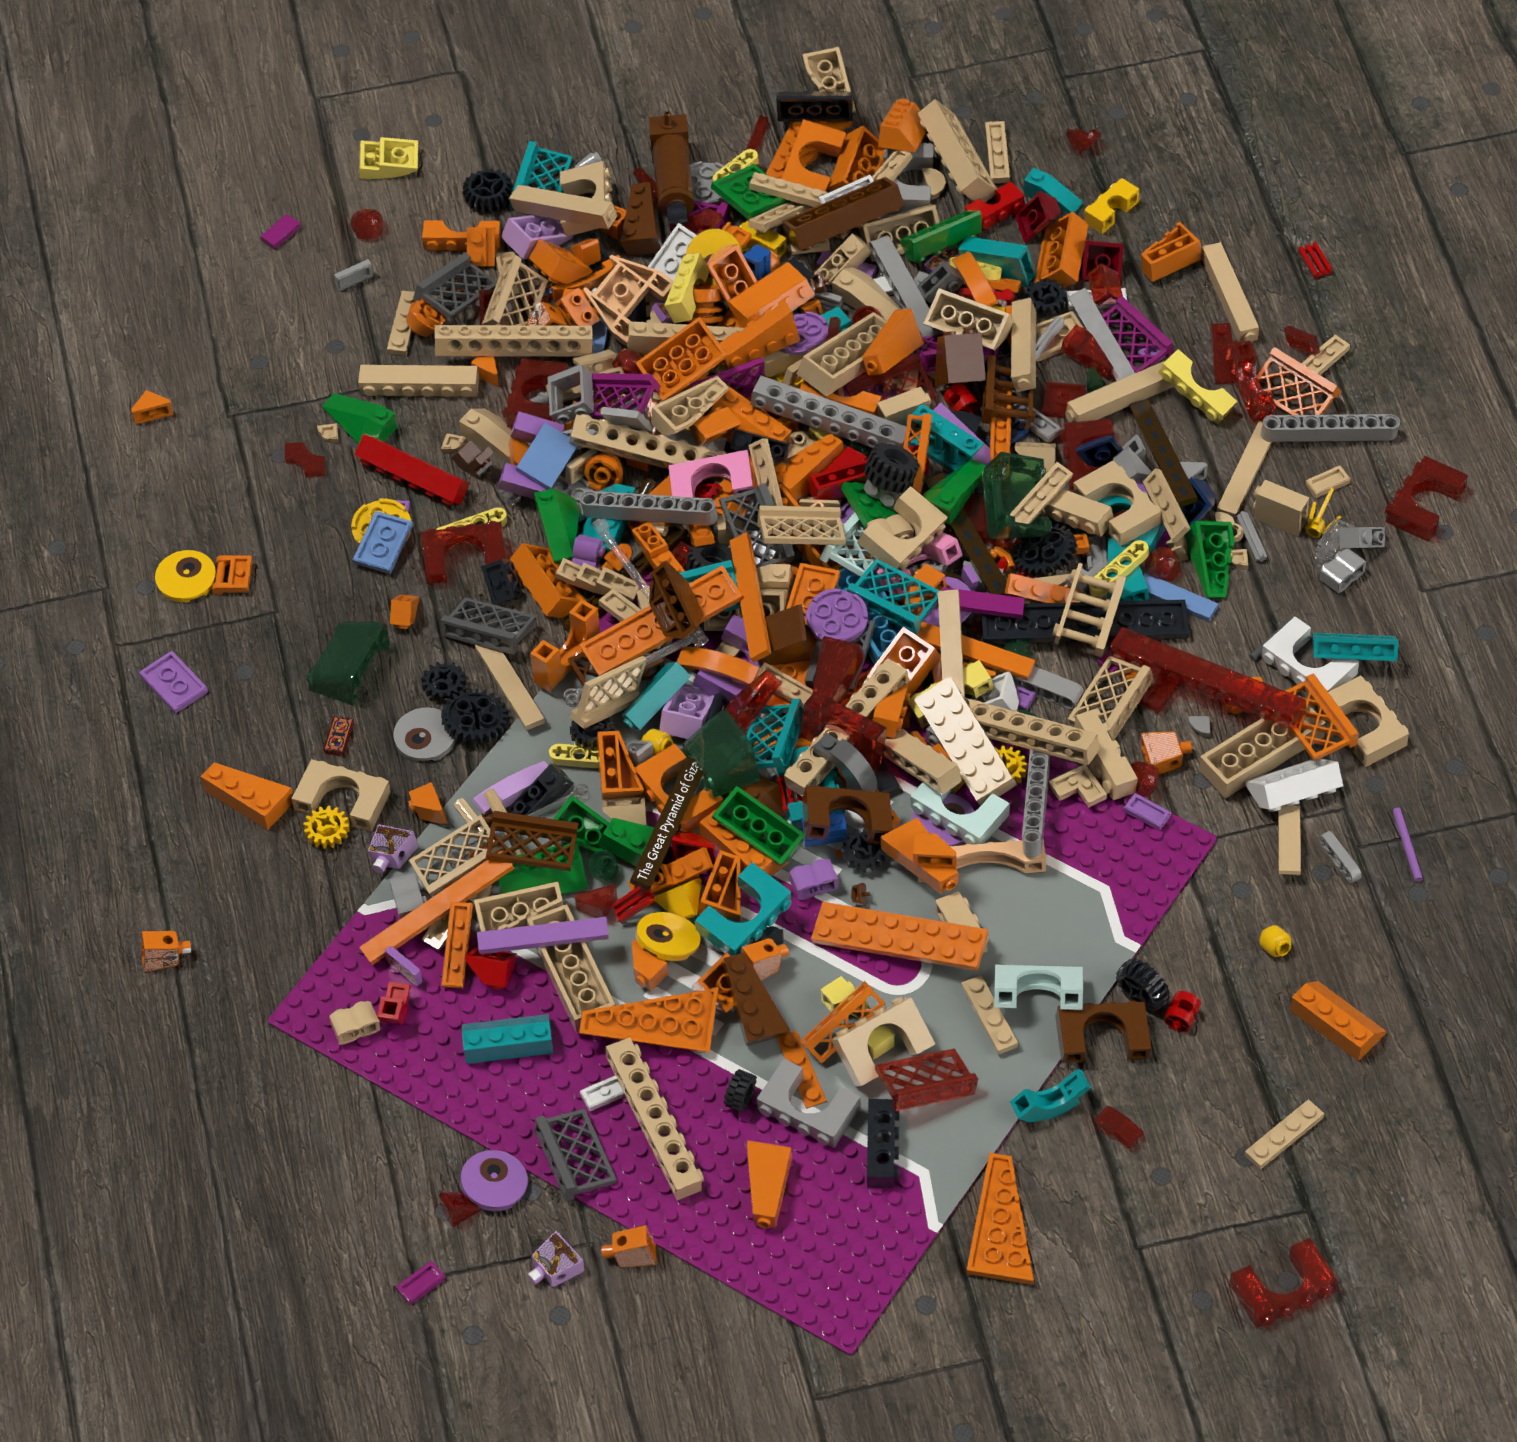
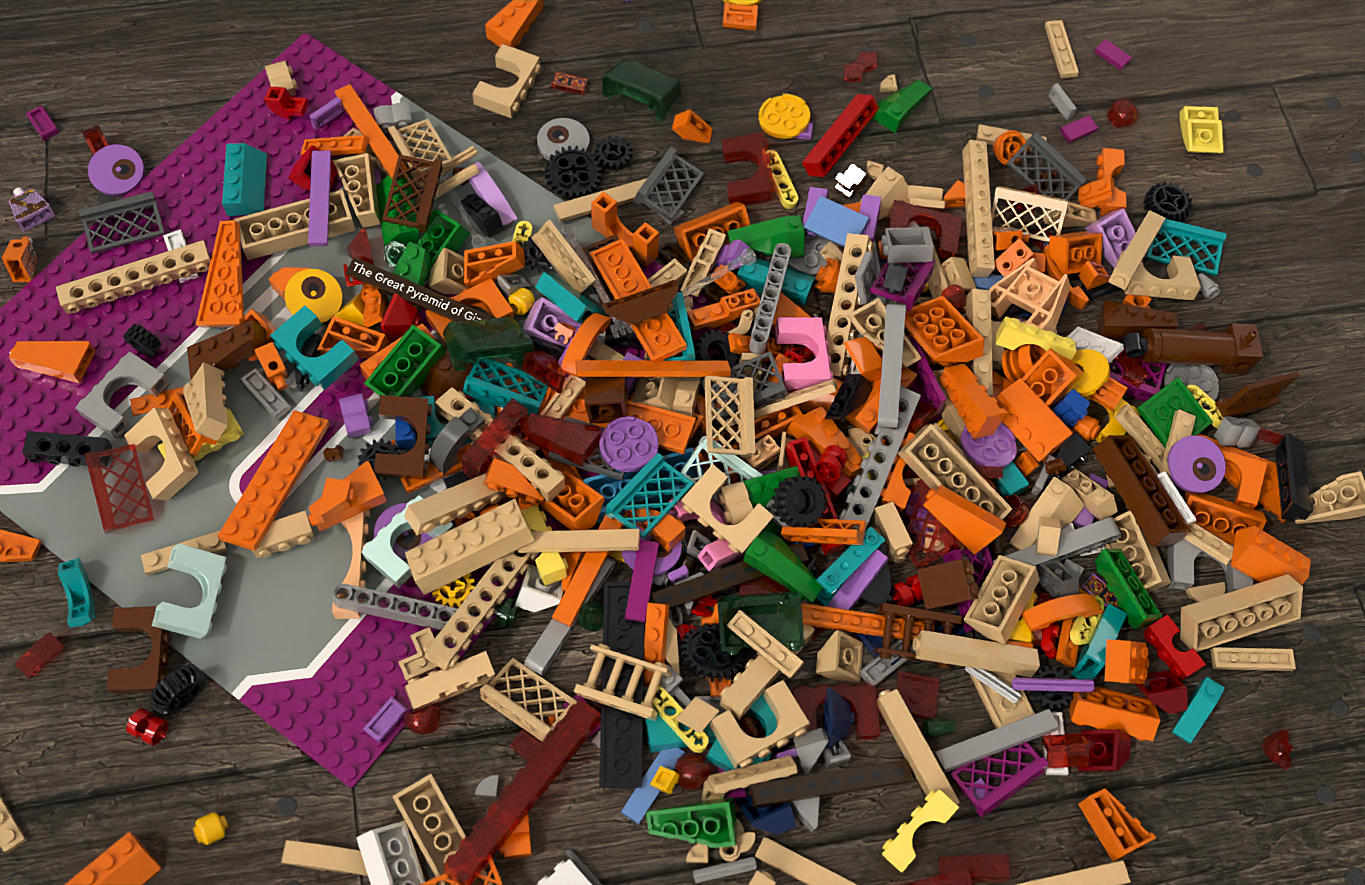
camera: 85 degrees right, 10 degrees up
(275, 275) = (1061, 49): none -> tan plate
(326, 827) = (476, 70): yellow gear -> none
(382, 542) = (763, 114): medium blue tile -> none
(387, 264) = (1078, 129): none -> magenta tile
(391, 847) = (446, 109): torso -> none
(418, 380) = (942, 144): tan brick -> none
(427, 804) = (485, 136): orange slope -> none
(493, 395) = (926, 197): none -> tan panel
(501, 581) = (713, 196): black bracket -> none
(623, 392) = (896, 277): none -> black slope
(675, 539) = (744, 323): none -> tan arm
(699, 688) = (566, 330): none -> tile
(725, 125) = (1256, 396): none -> reddish brown fence
(733, 392) = (891, 366): none -> light grey beam
(764, 145) = (1237, 432): none -> light grey brick
(791, 971) = (266, 393): none -> light grey tile
(809, 173) = (1196, 464): none -> medium lavender tile
(818, 1001) = (207, 402): none -> tan wedge
(841, 452) = (831, 463): none -> red wheel
(895, 287) = (1048, 536): none -> tan slope
(1016, 231) = (1126, 661): none -> orange brick
(1025, 698) = (542, 618): medium lavender tile -> none
(1047, 290) = (1046, 684): none -> medium lavender axle
(1084, 348) = (978, 719): clear red slope -> none
(1116, 546) = (697, 715): none -> tan sticker
(1120, 195) = (1198, 780): yellow arch -> none
(1164, 750) = (456, 744): orange torso -> none
(1176, 580) = (665, 780): none -> yellow tile

